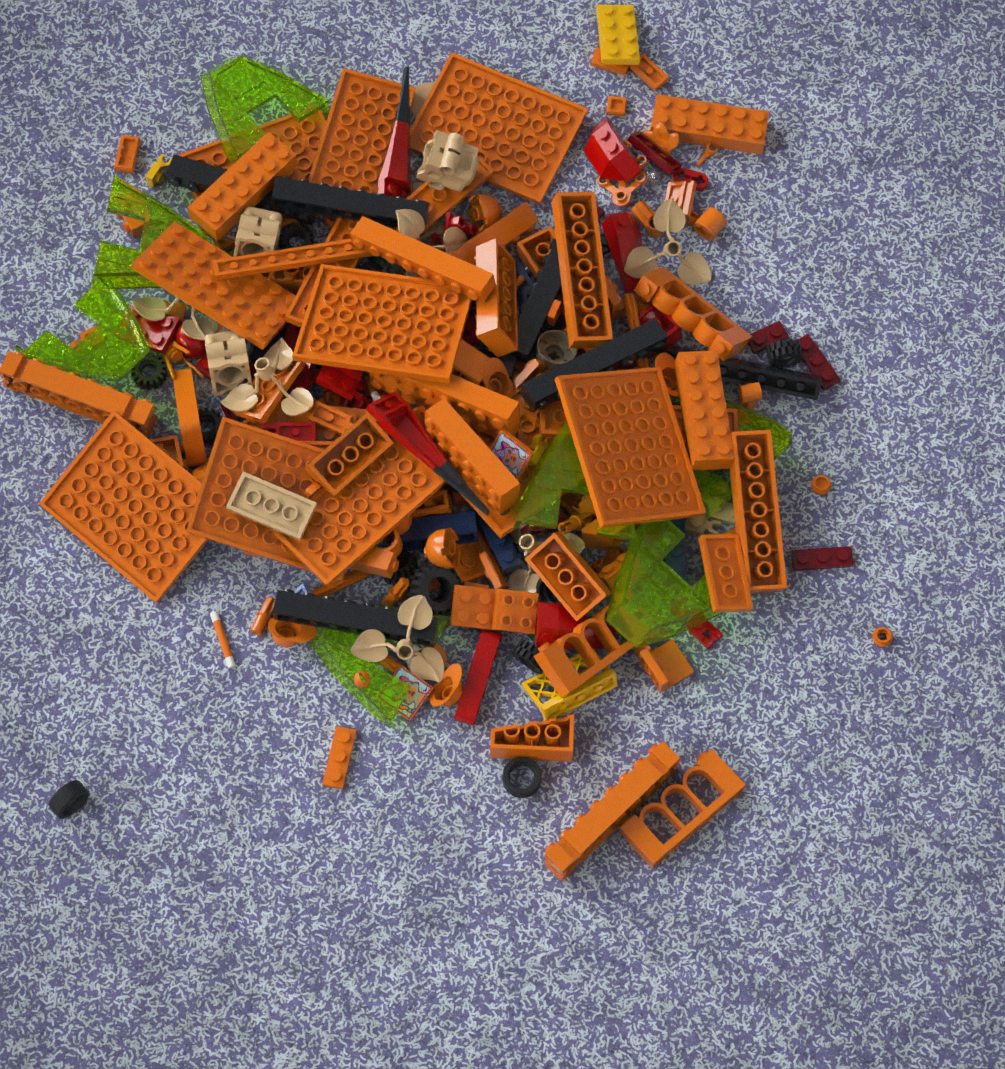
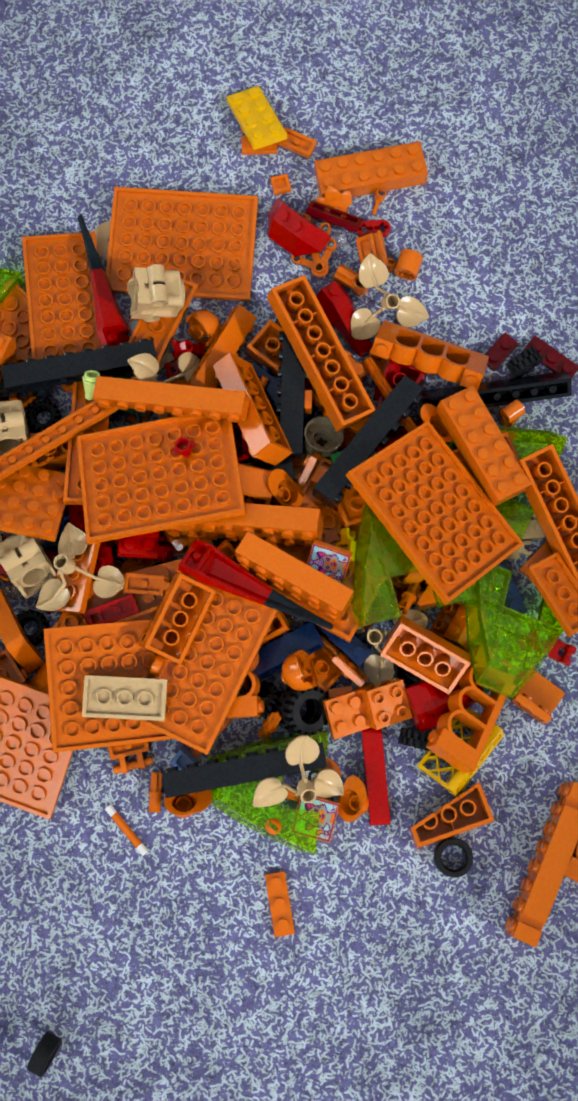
camera: 20 degrees left, 10 degrees up
(253, 565) = (122, 751): none -> orange plate
(352, 219) = (89, 381): none -> yellowish green cone
(416, 305) = (181, 442): none -> red plate

